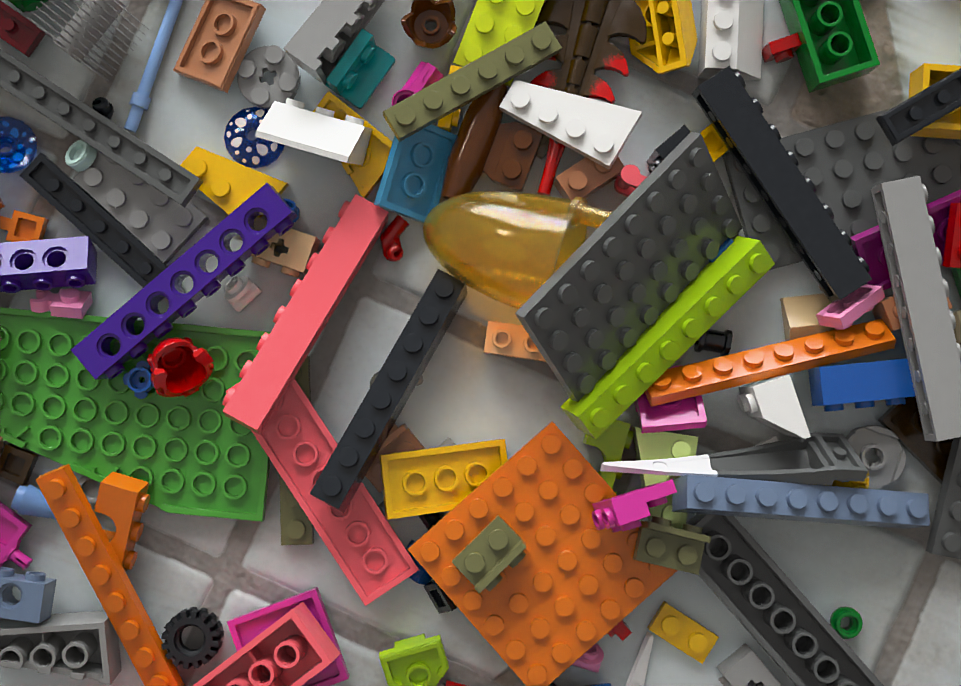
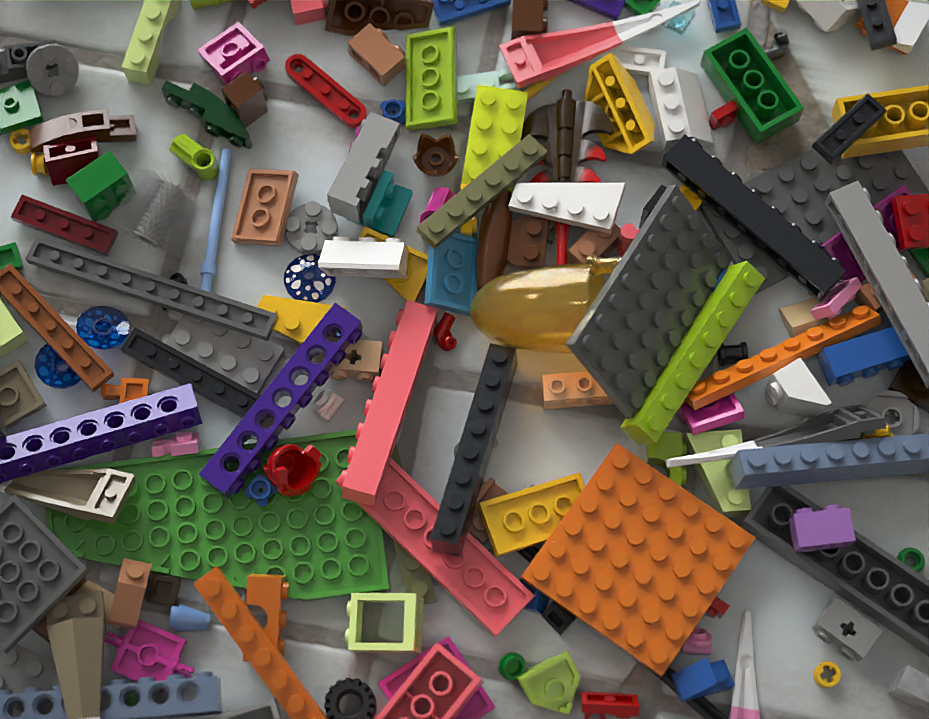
camera: 15 degrees left, 15 degrees down
(80, 156) = (168, 323): light aqua tile -> none
(276, 569) = (412, 623): none -> yellowish green window
(377, 637) = (511, 666): none -> green plate
(490, 554) = (591, 559): olive bracket -> none
(627, 509) = (698, 485): dark pink plate -> none
(670, 546) = (741, 516): olive bracket -> none
(683, 632) = (774, 602): yellow plate -> none
(758, 580) = (821, 528): none -> medium lavender brick

